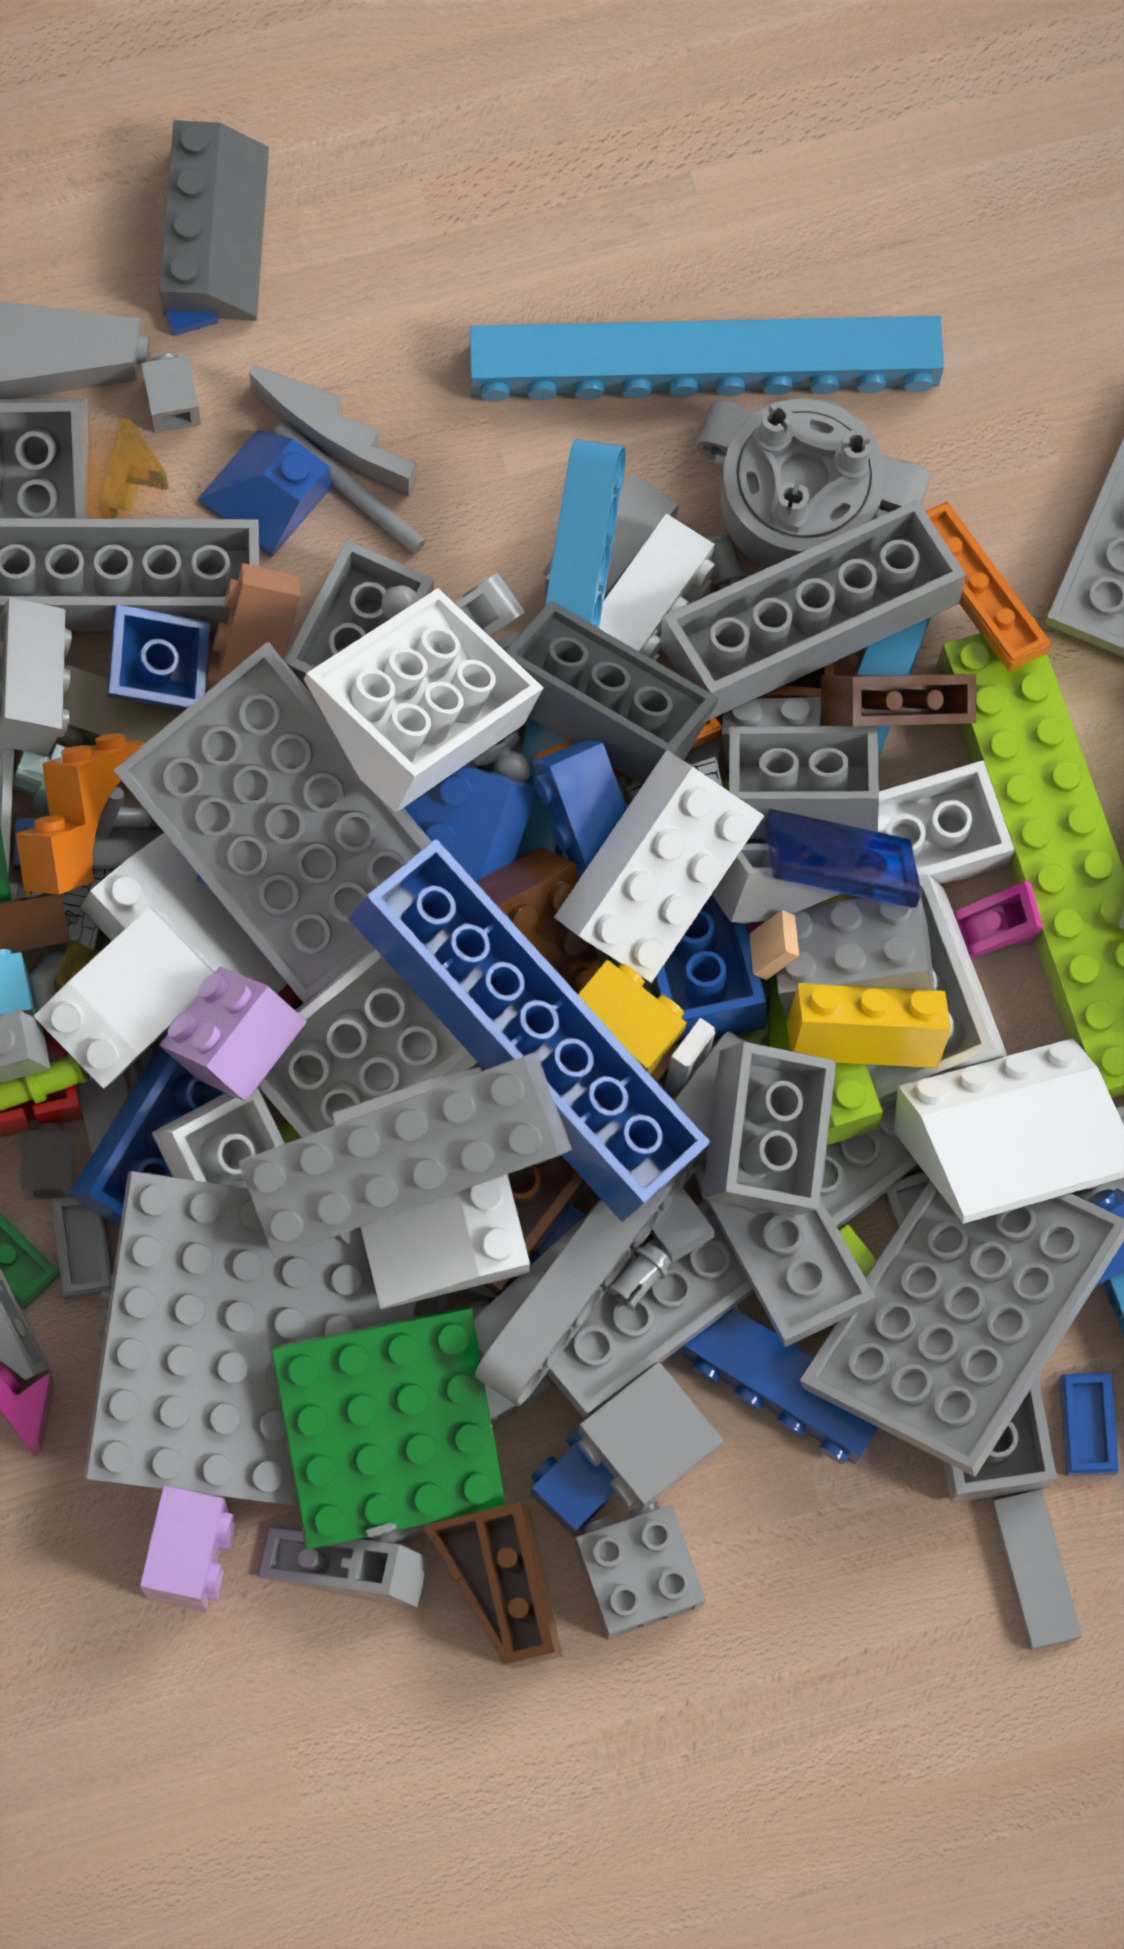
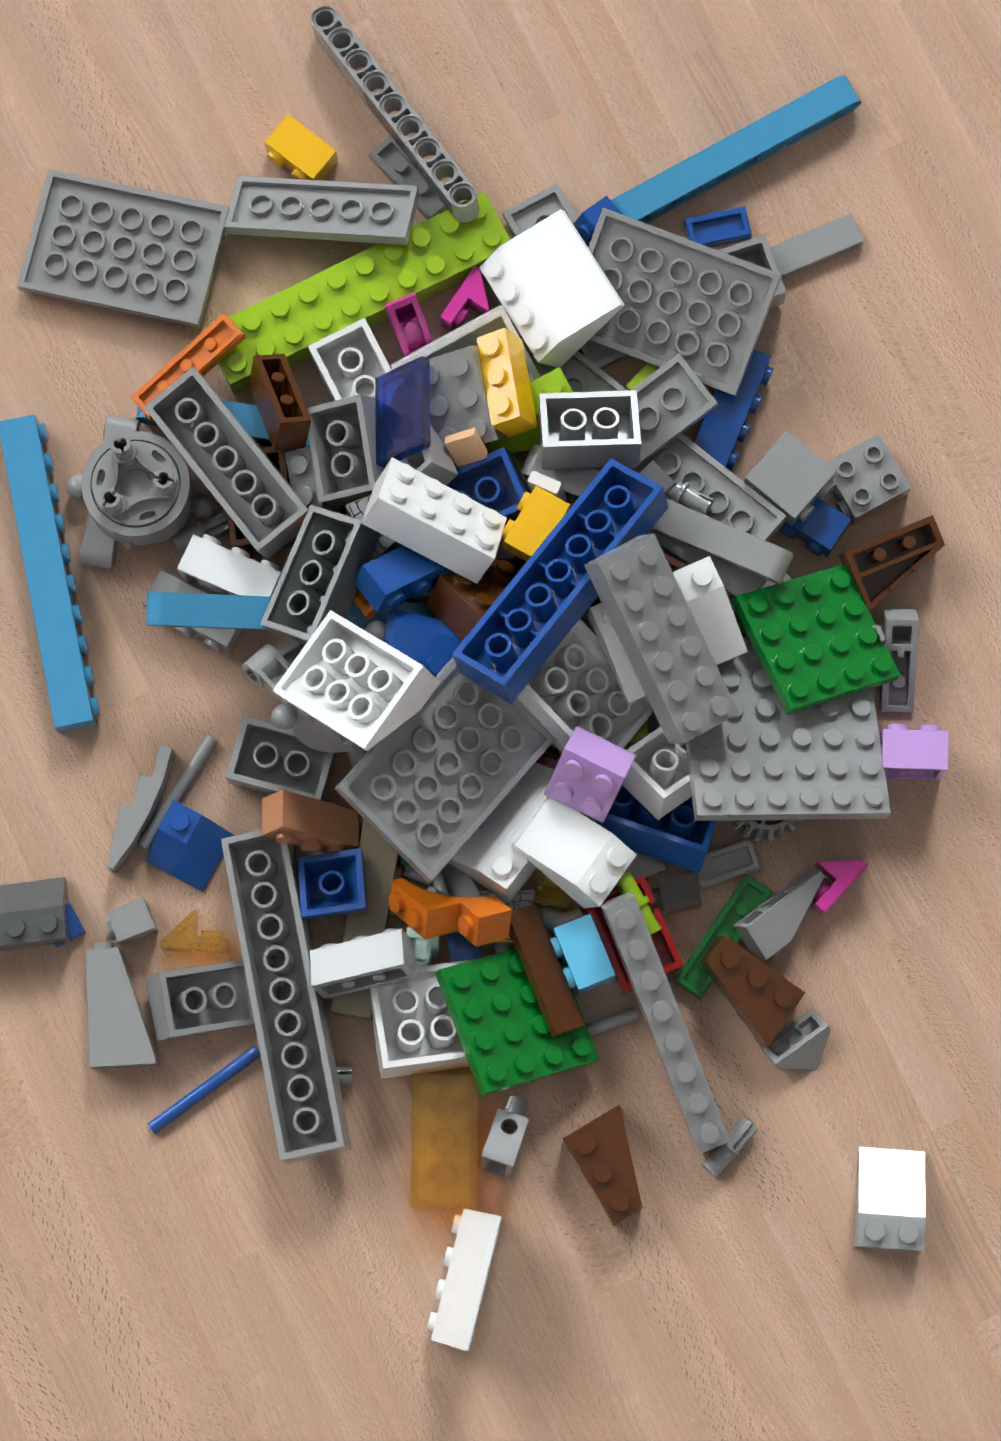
camera: 90 degrees left, 5 degrees up
(1036, 1021) = (469, 295): none -> dark pink slope

